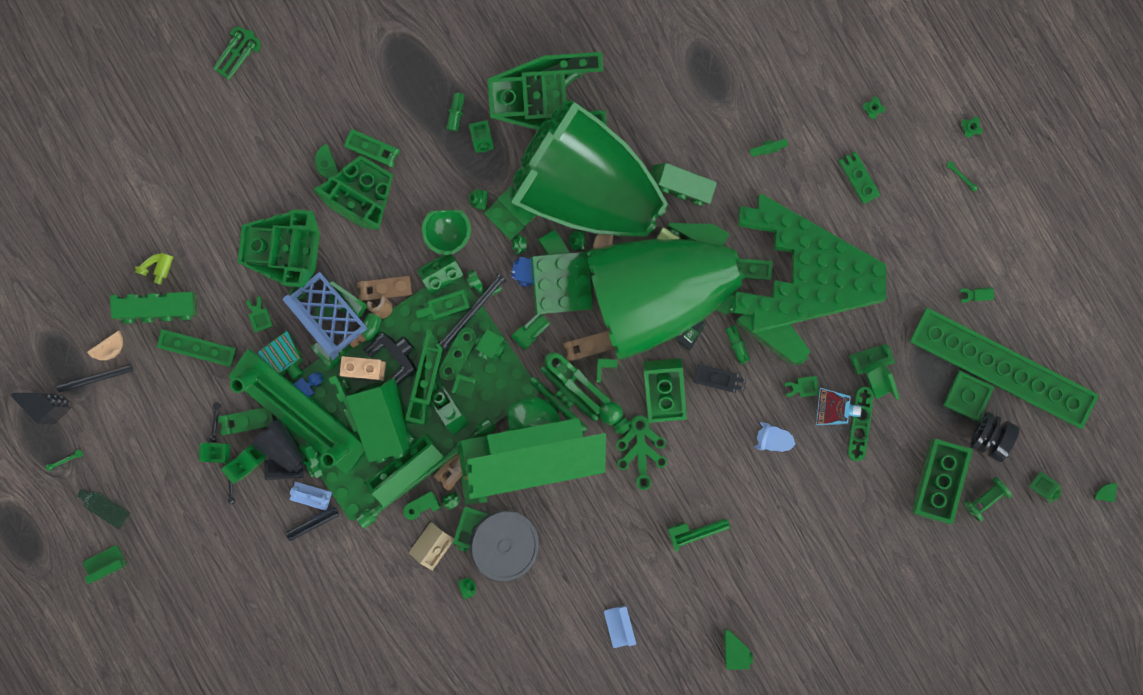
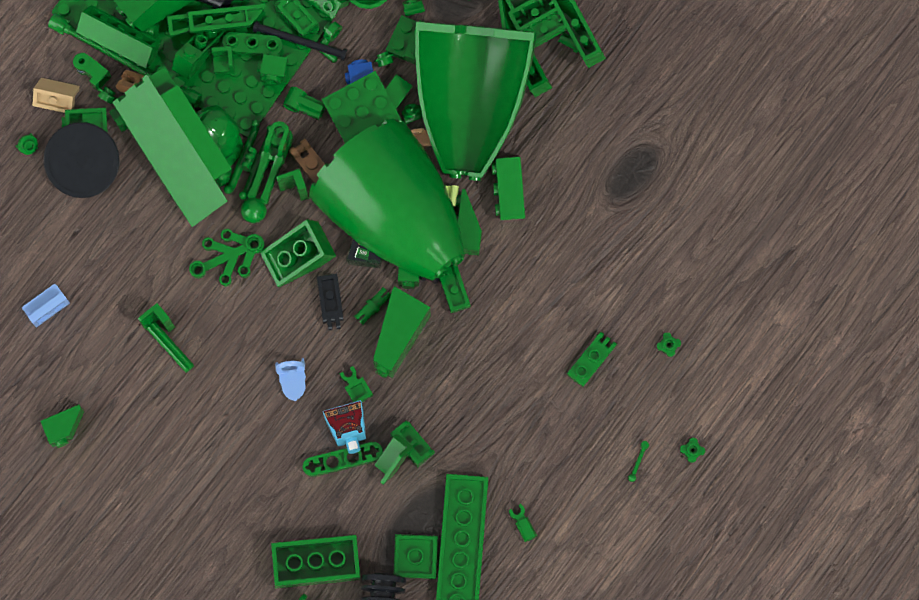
camera: 65 degrees right, 10 degrees down
(622, 426) = (245, 226): green plate -> none
(769, 147) = (582, 256): green plate -> none
(825, 271) = (479, 359): green wing -> none

